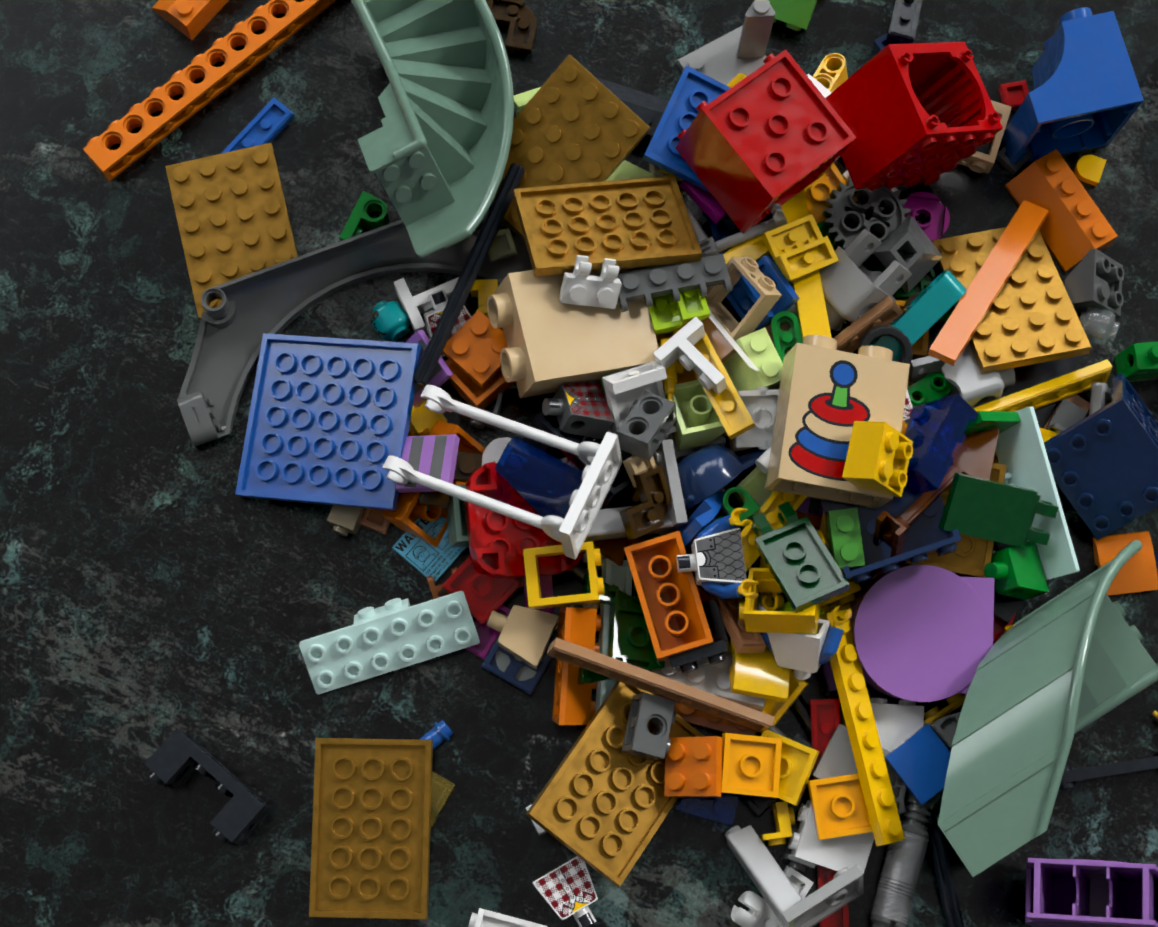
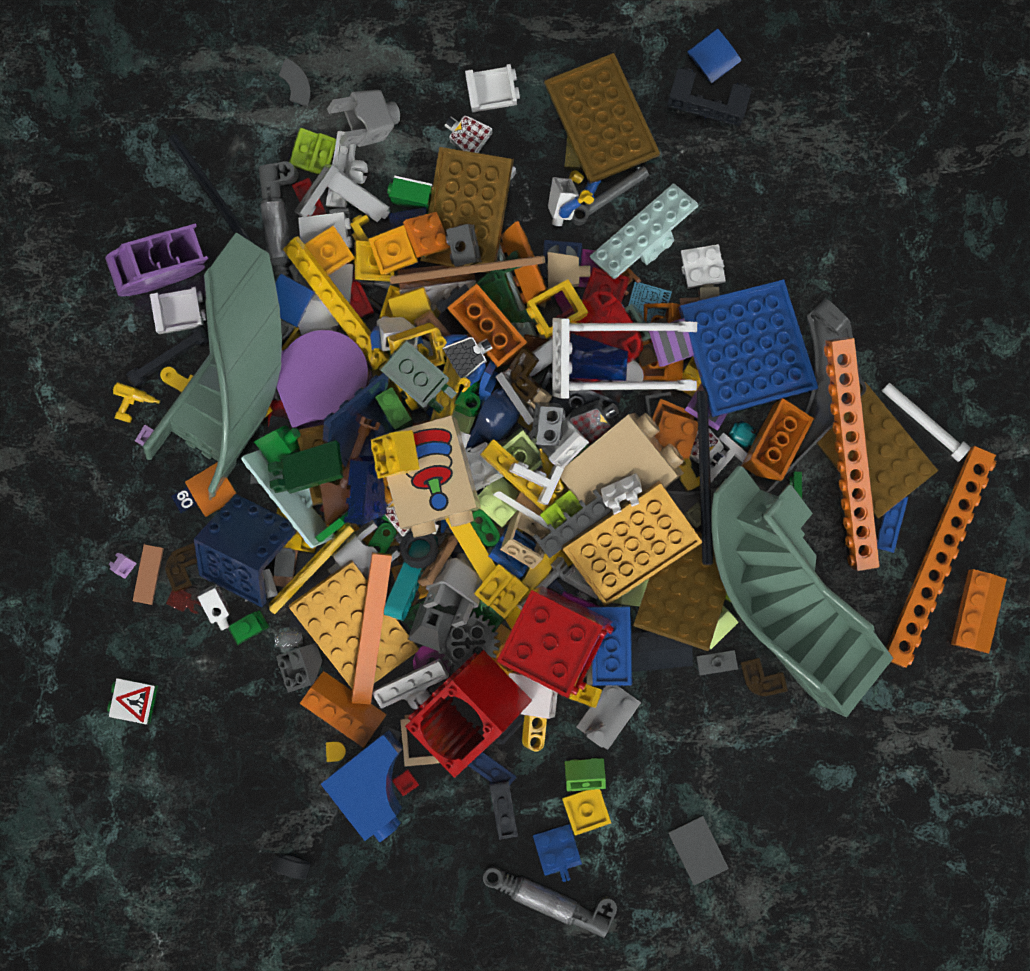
camera: 160 degrees right, 10 degrees up
(125, 179) = (959, 450): none -> white piece
(171, 848) = (714, 55): none -> blue slope
(261, 226) = (869, 556): none -> orange brick
(333, 562) = (703, 266): none -> white plate
(351, 284) = (777, 441): none -> orange slope
(412, 716) = (610, 194): none -> dark grey piece
(478, 735) = (565, 199): none -> white torso
(549, 60) = (717, 662): none -> dark grey plate
(689, 841) = (410, 193): none -> green piece
(961, 197) = (411, 686): none -> white plate
(1084, 829) = (177, 310): none -> white panel
(1120, 730) = (174, 379): none -> yellow leg

